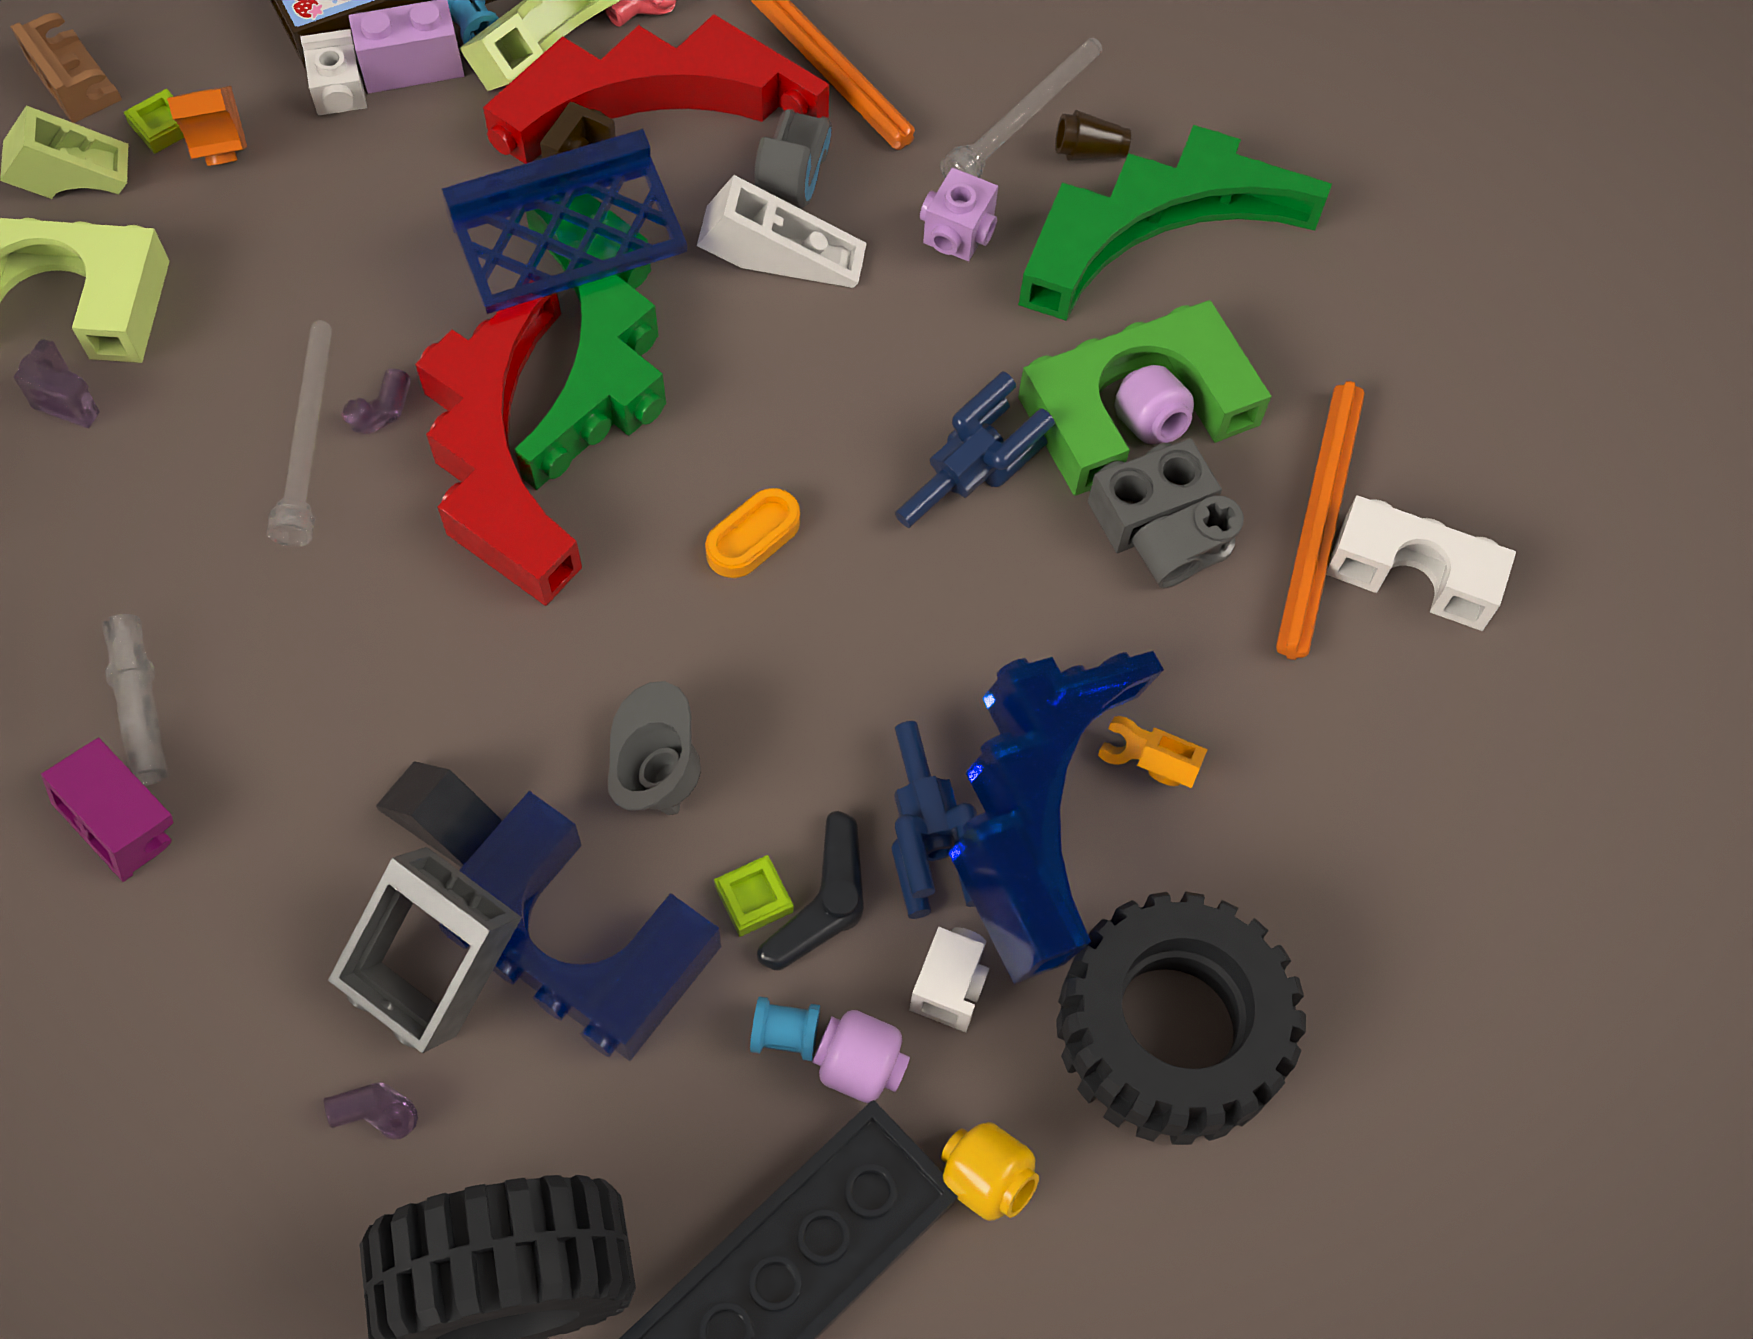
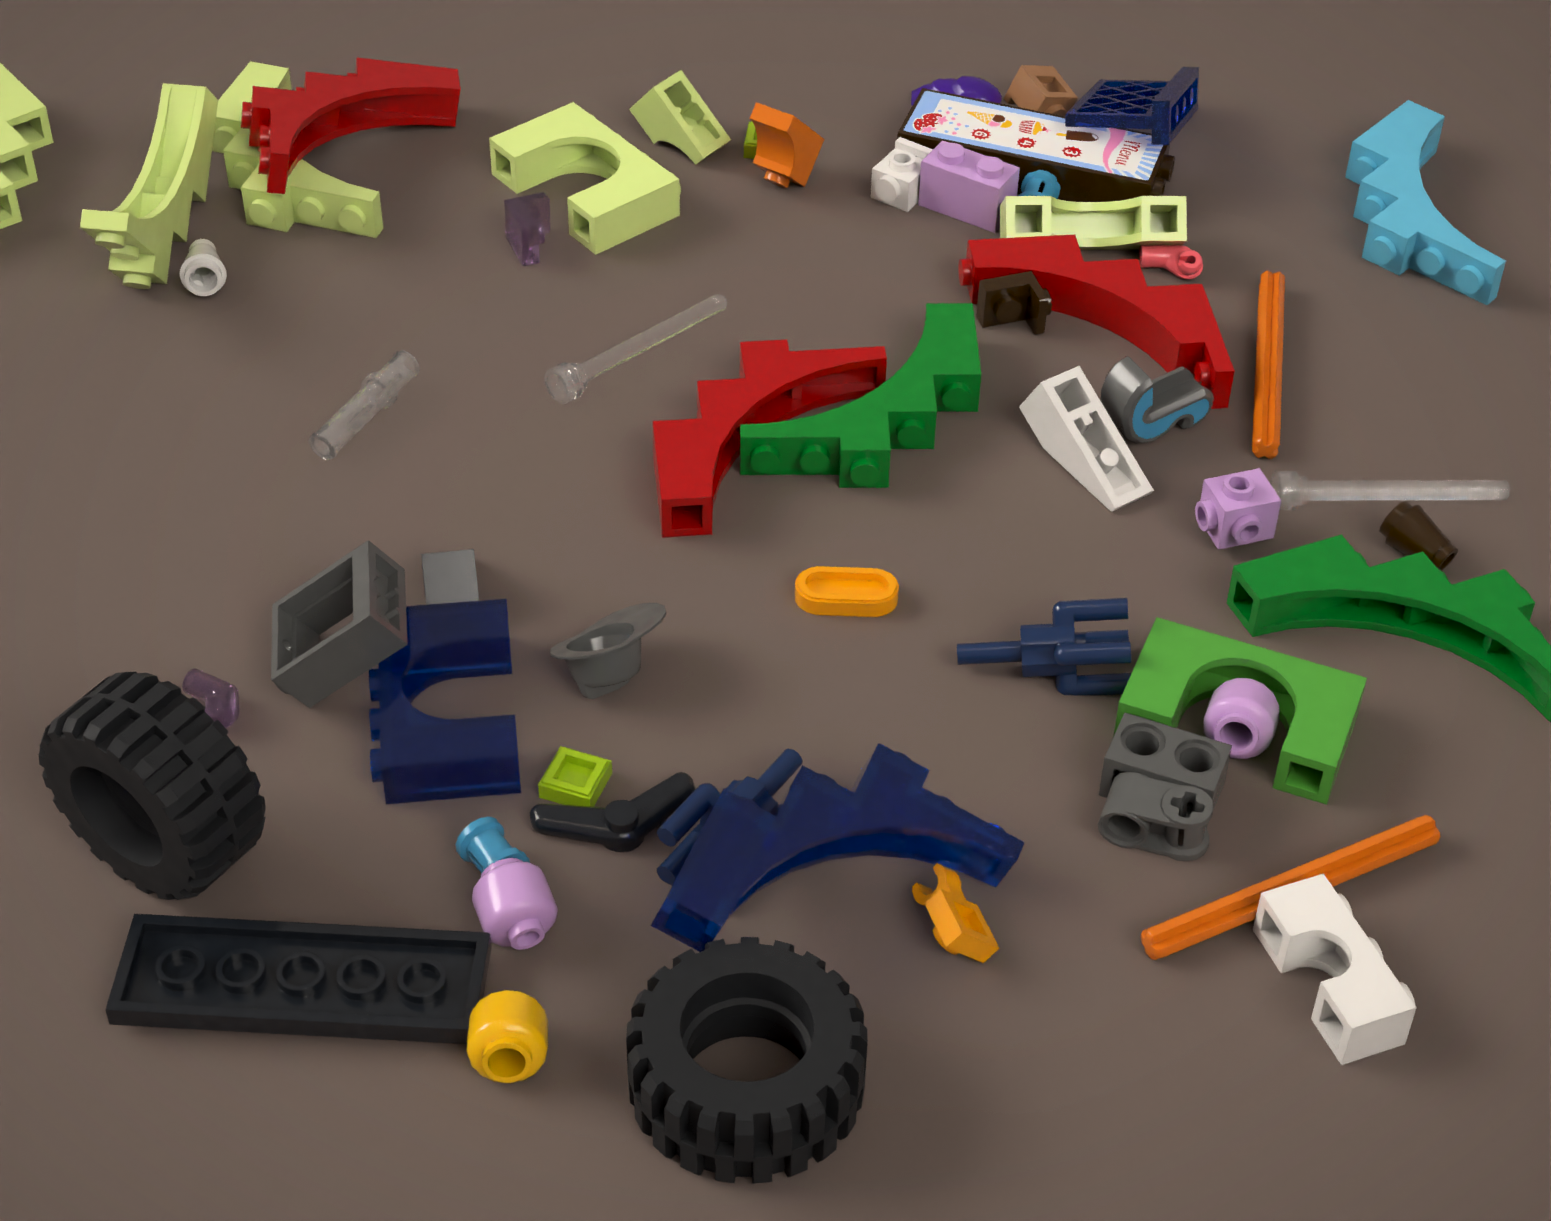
camera: 50 degrees right, 20 degrees down
(65, 67) = (742, 79): medium nougat hinge -> none
(108, 807) = (279, 442): magenta hinge -> none
(385, 409) = (700, 366): clear purple arm -> none
(541, 186) = (944, 297): clear blue fence -> none
(950, 978) = (623, 913): white brick -> none

